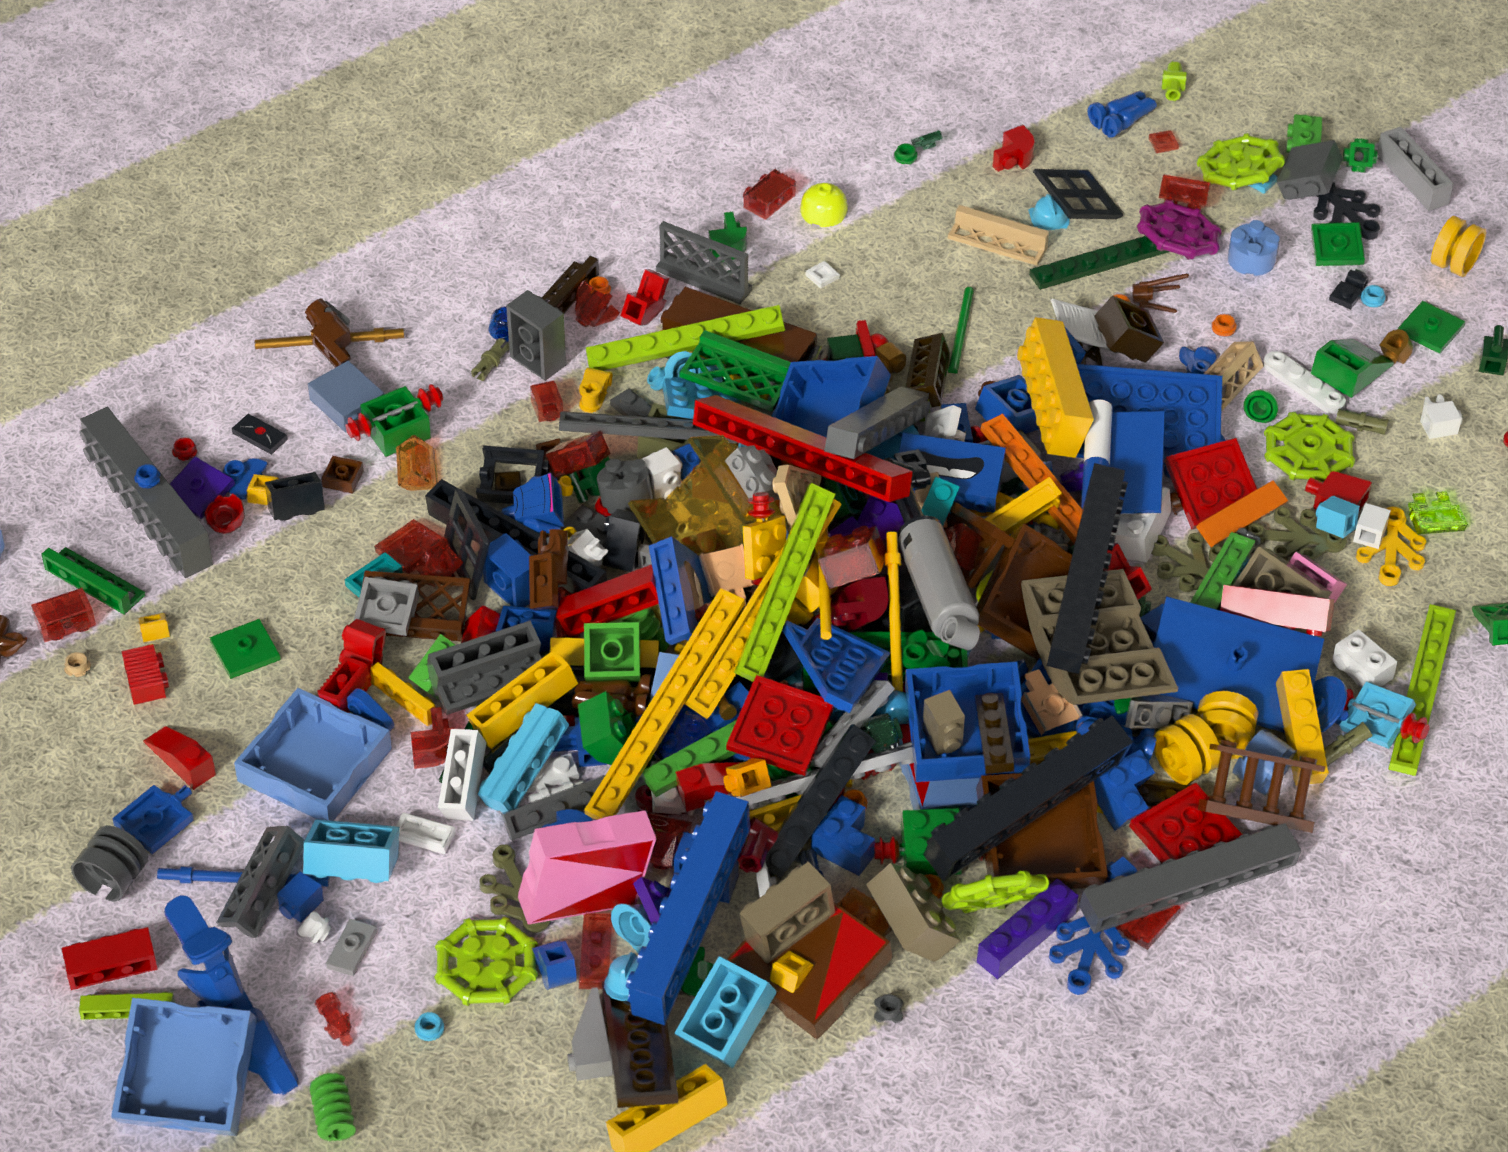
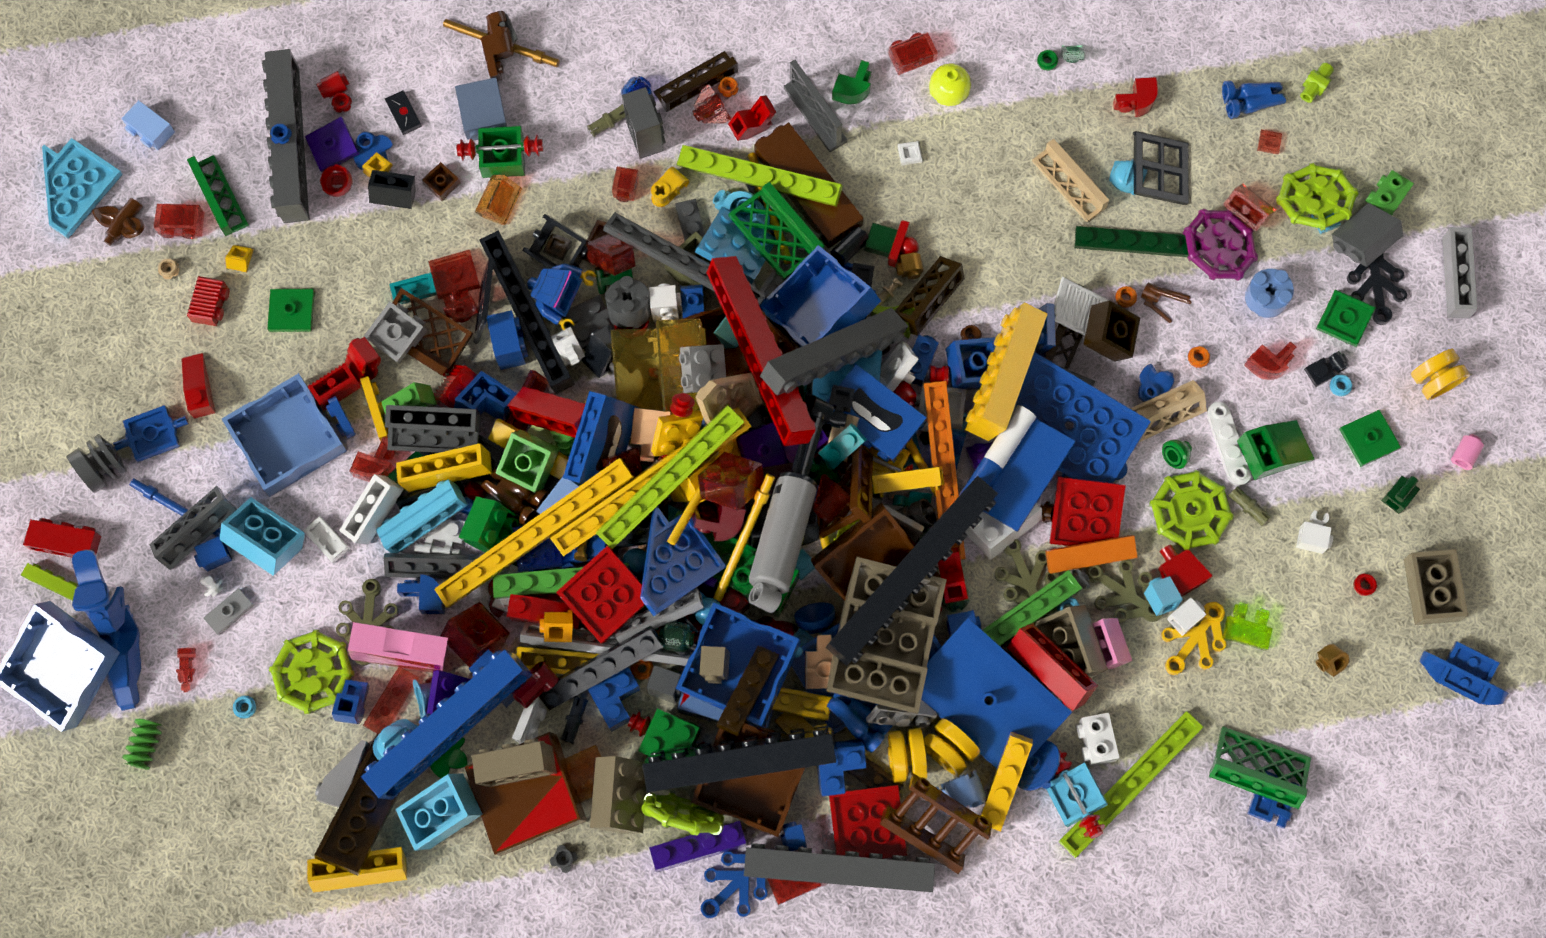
camera: 30 degrees right, 25 degrees up
(164, 436) = (333, 84): none -> red brick
(548, 569) = (522, 361): reddish brown plate -> none
(790, 971) = (500, 803): yellow slope -> none
(891, 794) = (663, 684): none -> dark grey brick
(961, 330) = (986, 260): green axle -> none
(1294, 304) = (1270, 366): none -> clear red brick
(1345, 743) = (1049, 807): olive pin -> none
(1367, 151) = (1417, 242): green brick -> none
(1396, 346) = (1325, 448): pearl gold plate -> none

